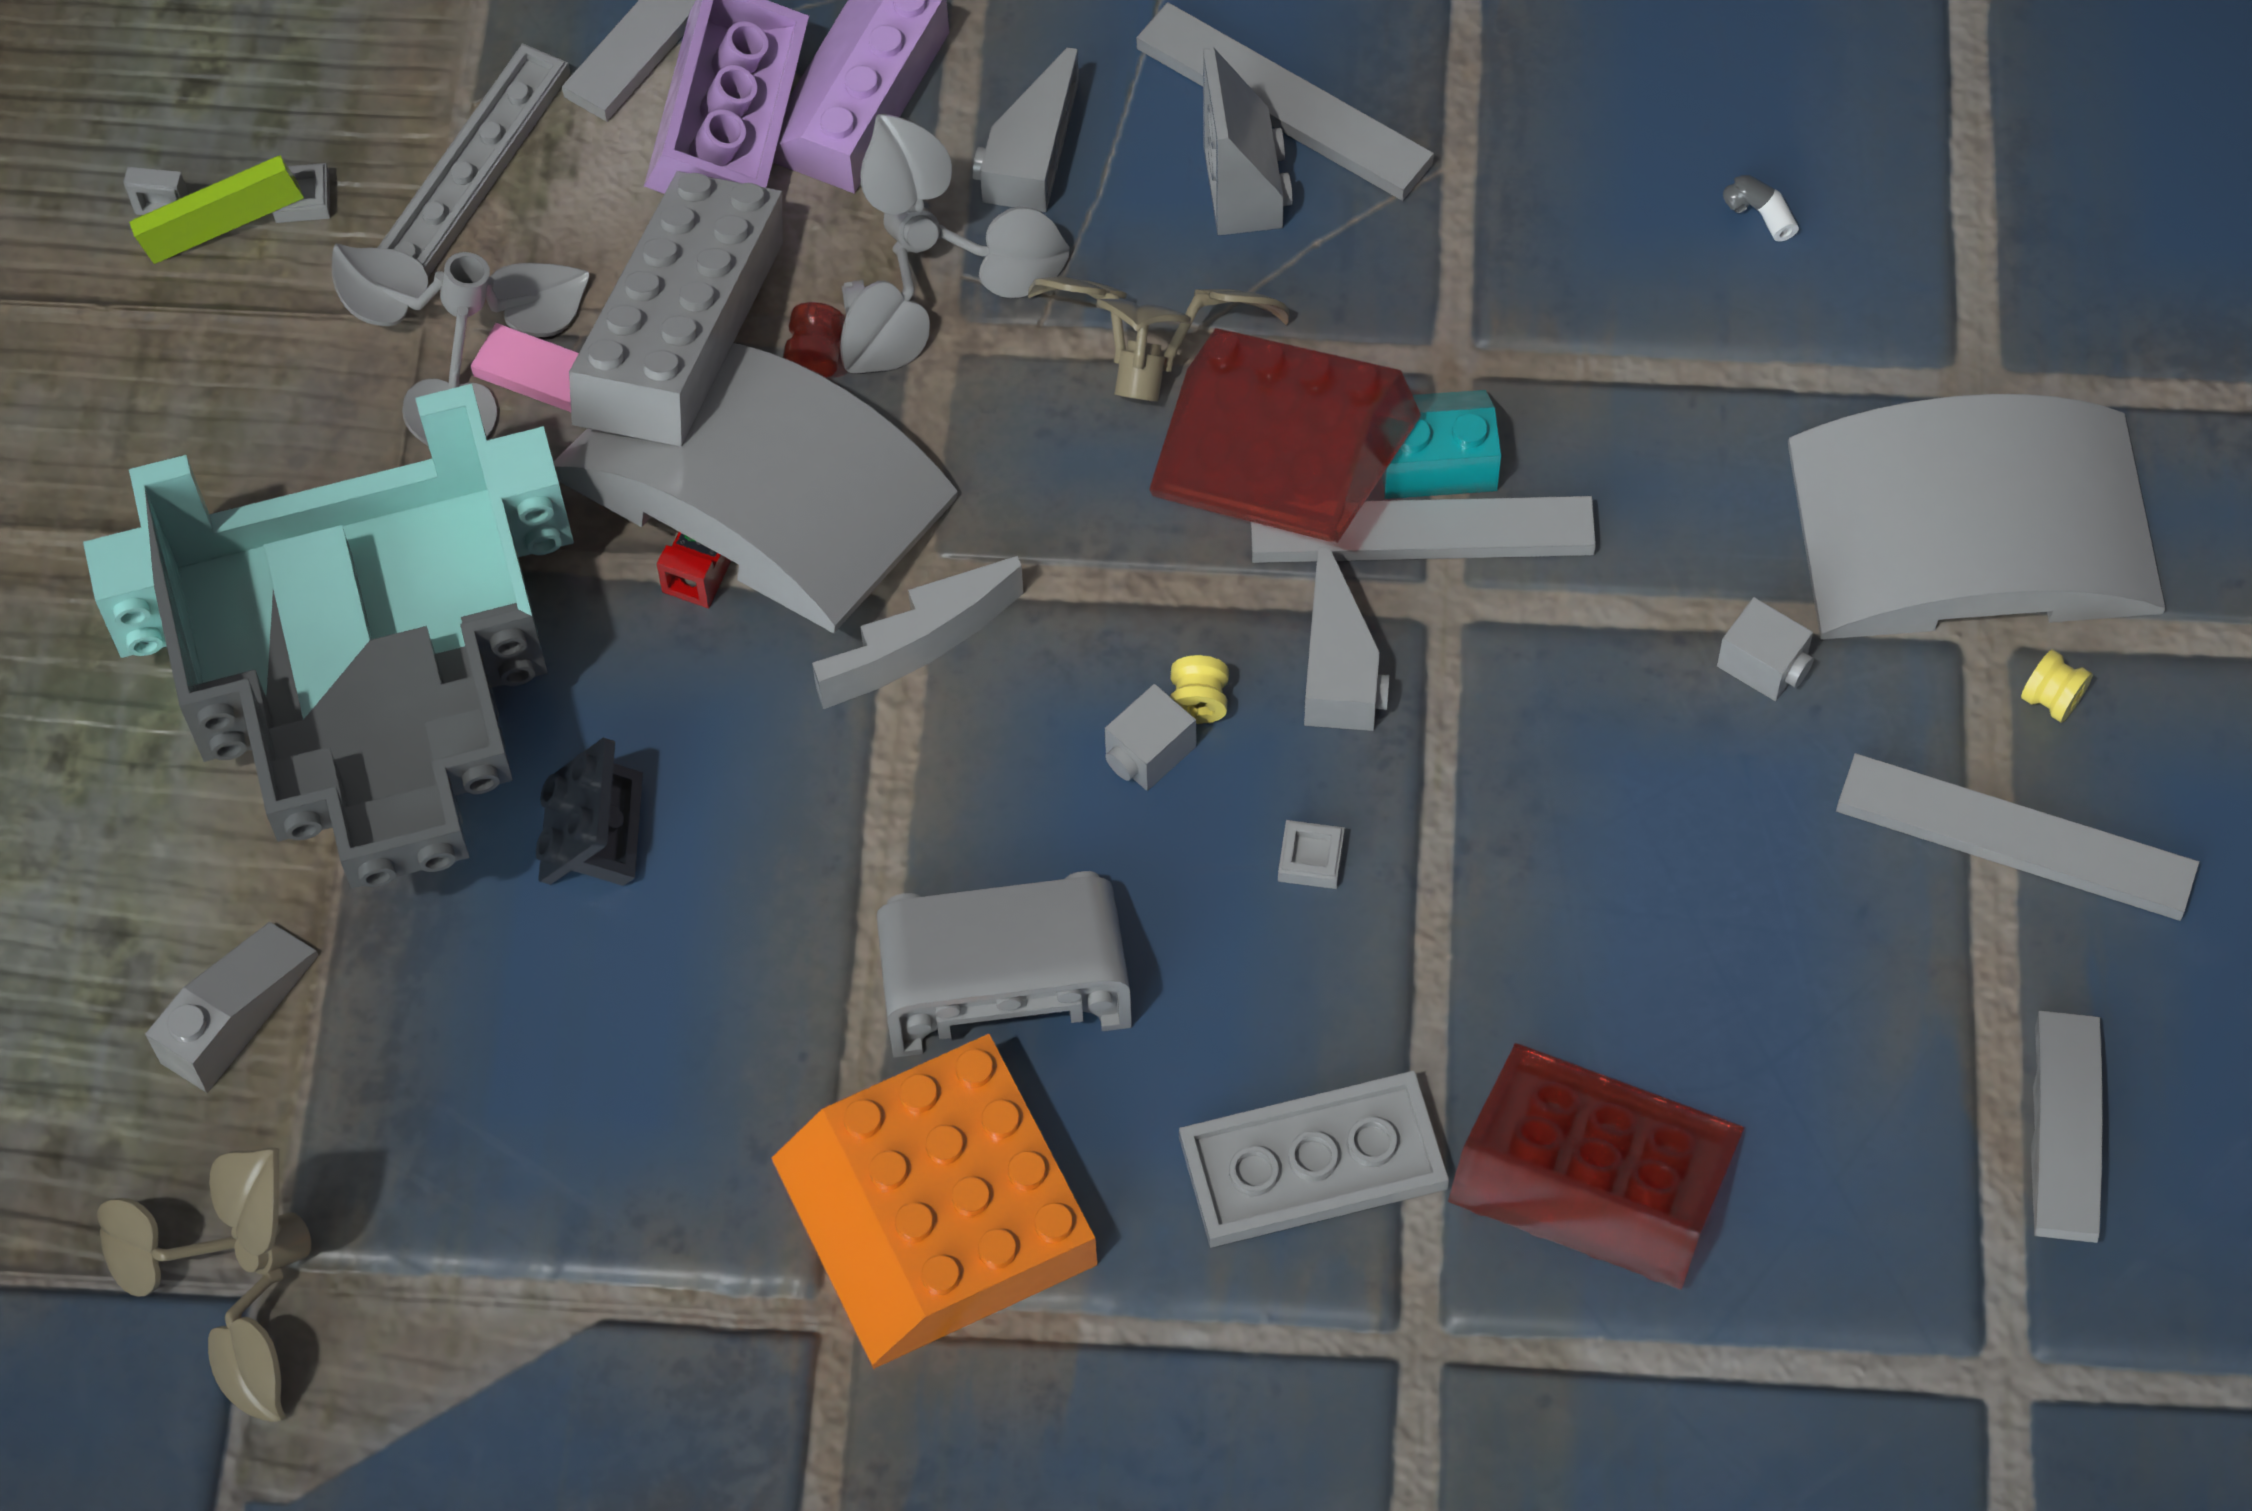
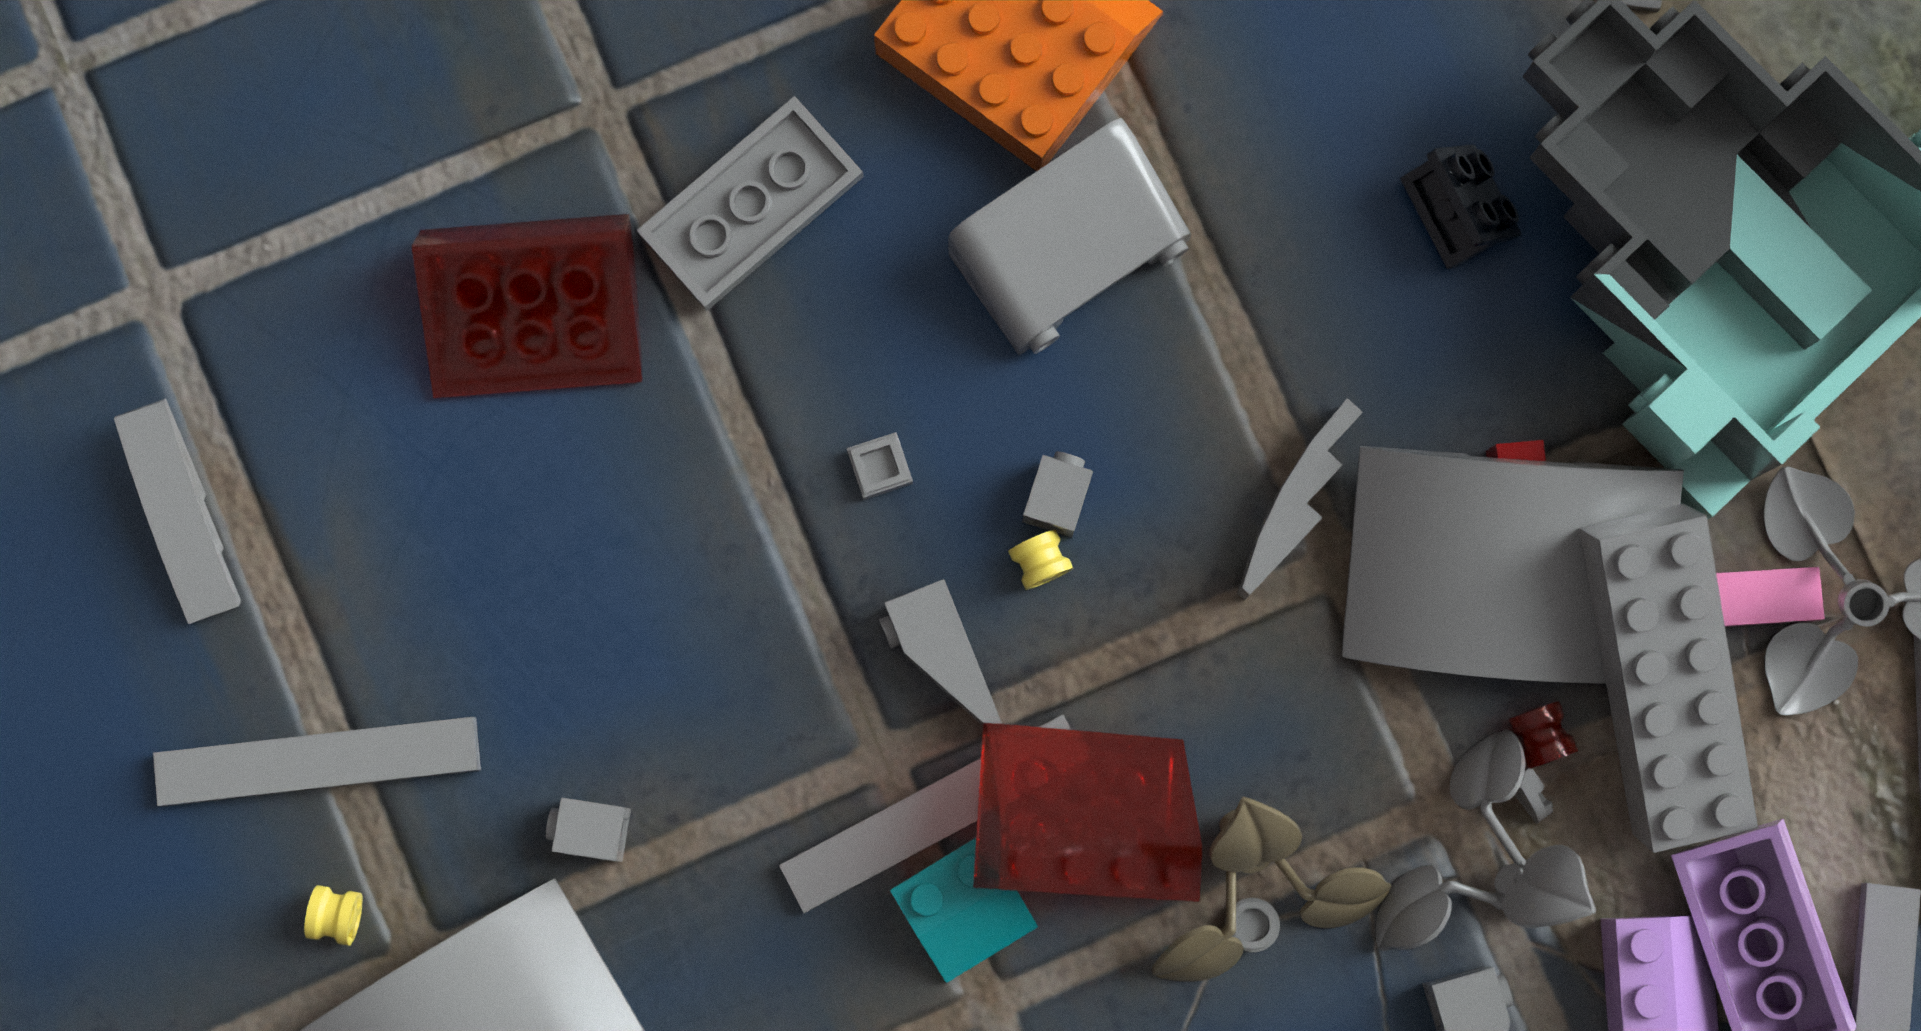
camera: 150 degrees right, 20 degrees up
(1178, 300) = (1256, 924): none -> light grey tile

